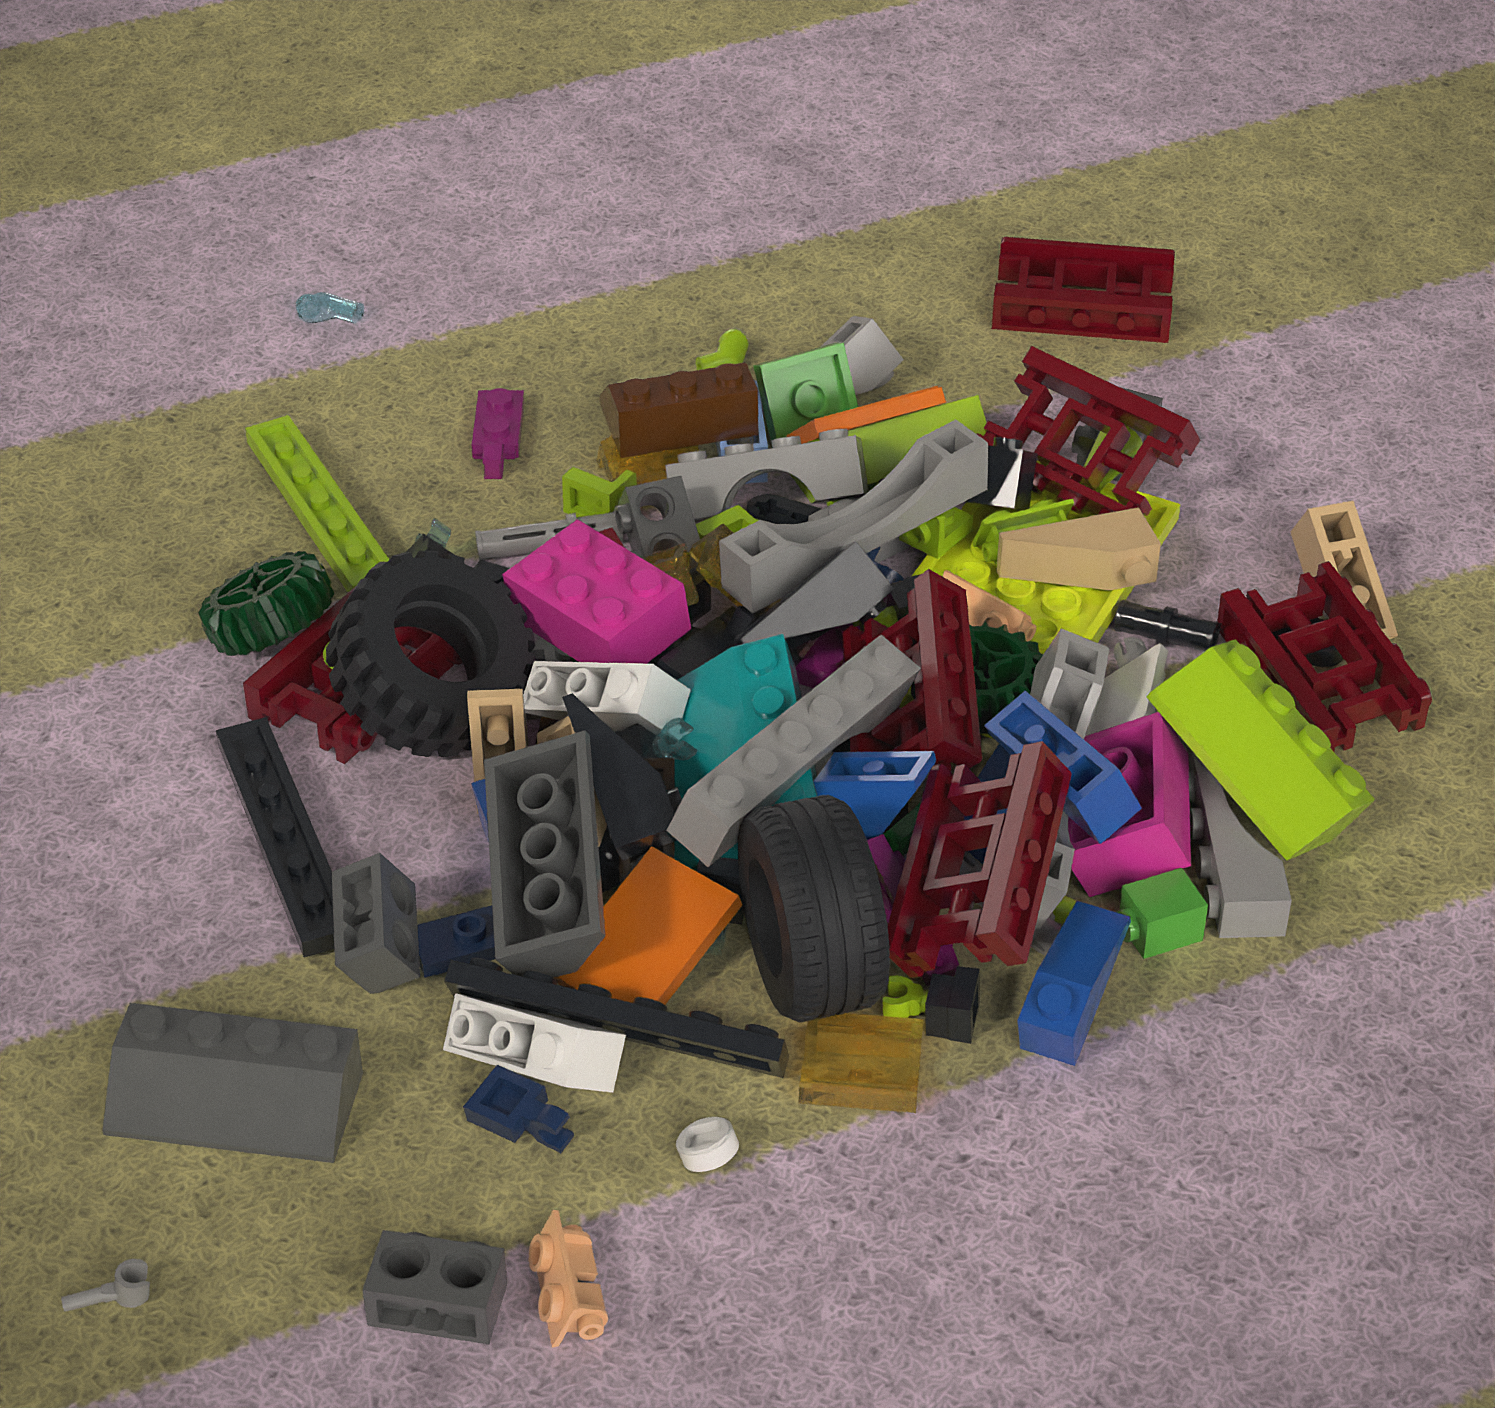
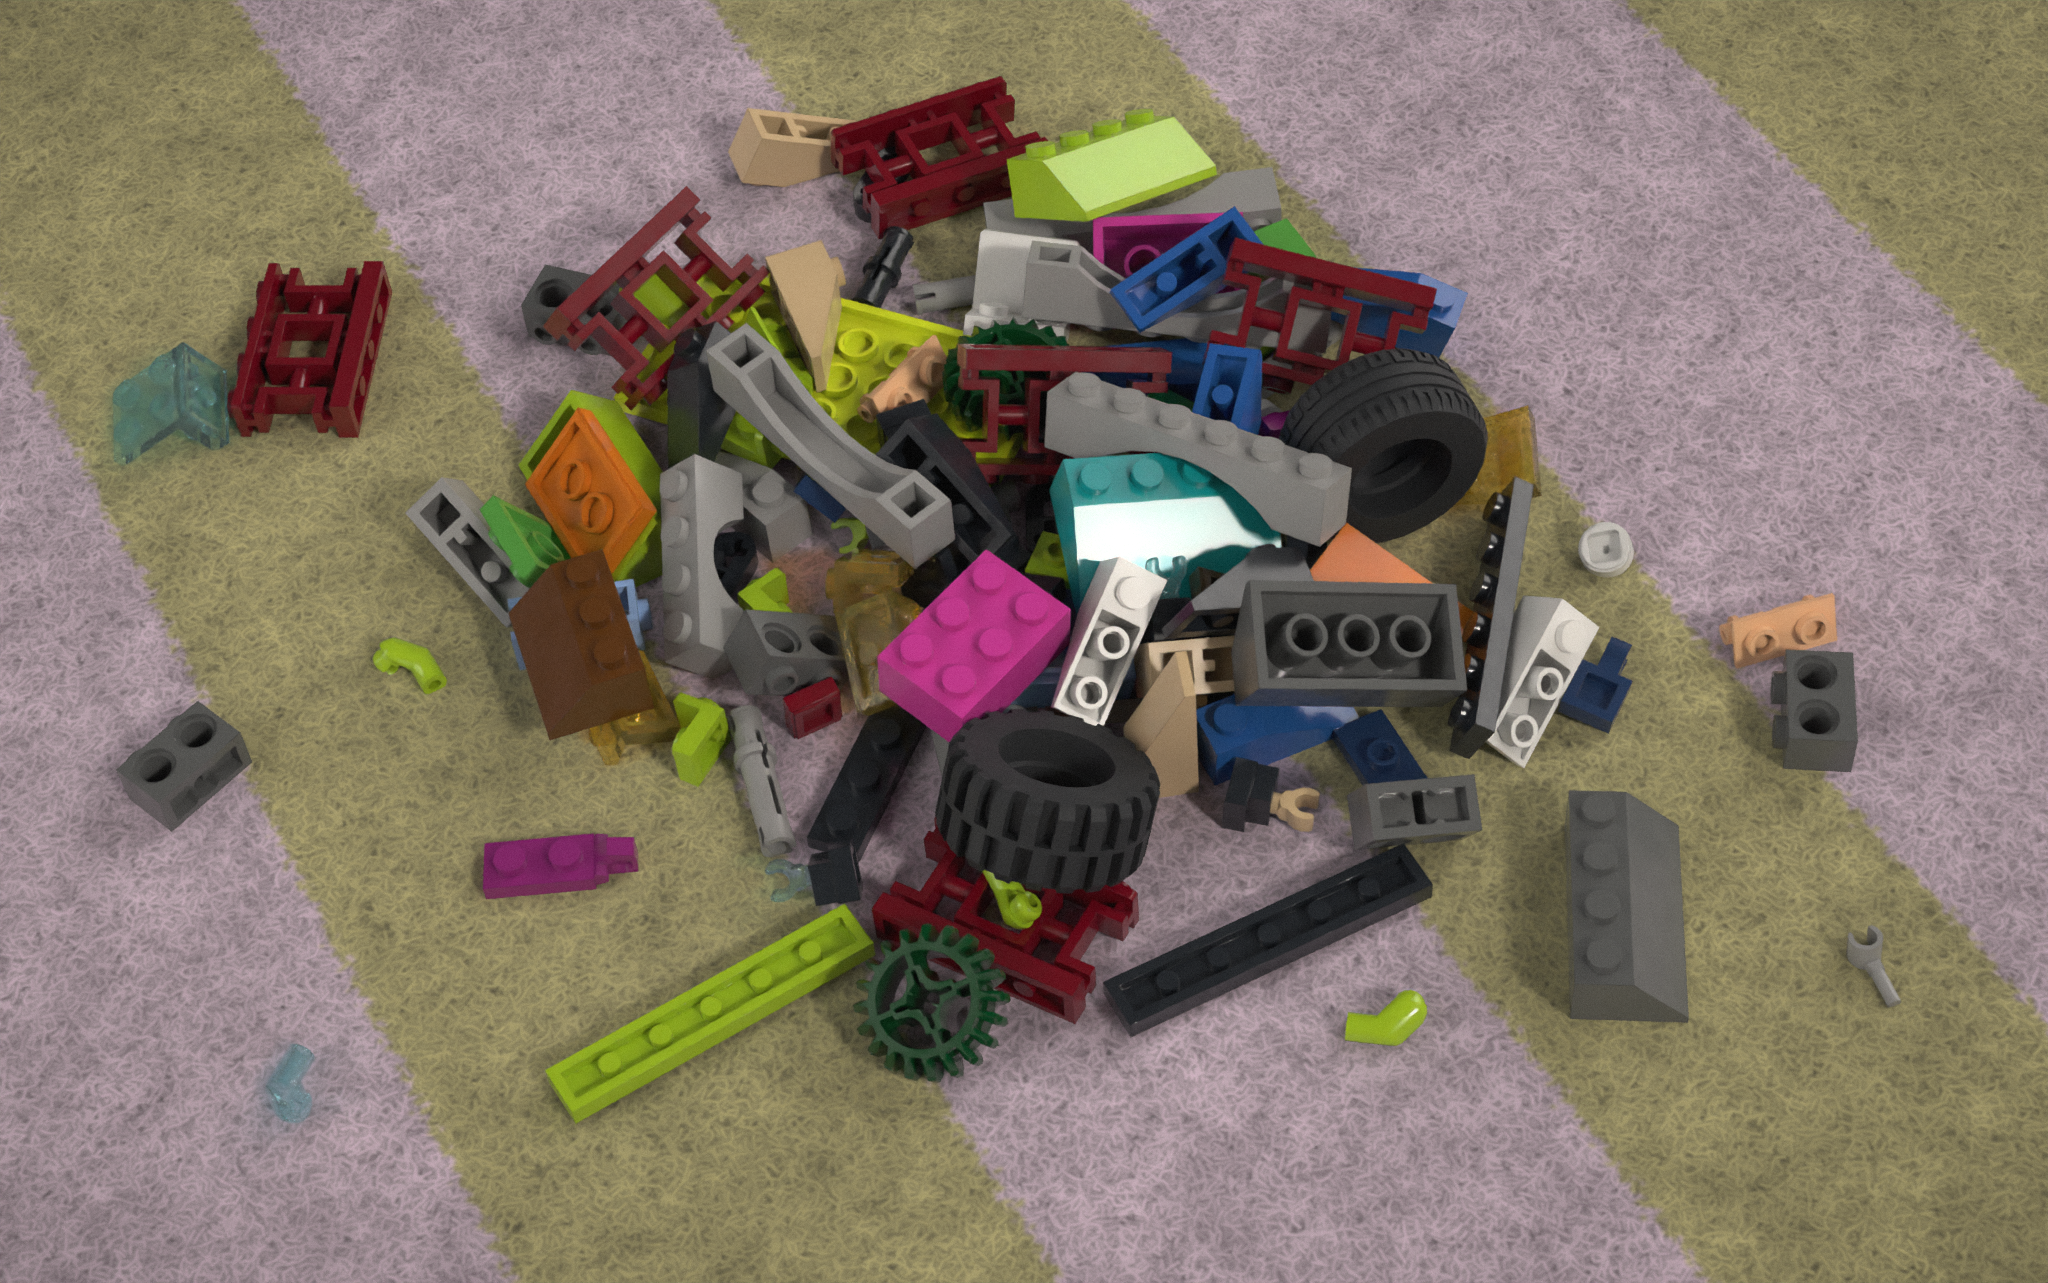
camera: 90 degrees left, 10 degrees up
(170, 911) = (1392, 1024): none -> lime arm
(448, 836) = (1254, 797): none -> black piece
(636, 243) = (184, 765): none -> dark grey brick
(1038, 219) = (171, 394): none -> clear light blue bracket

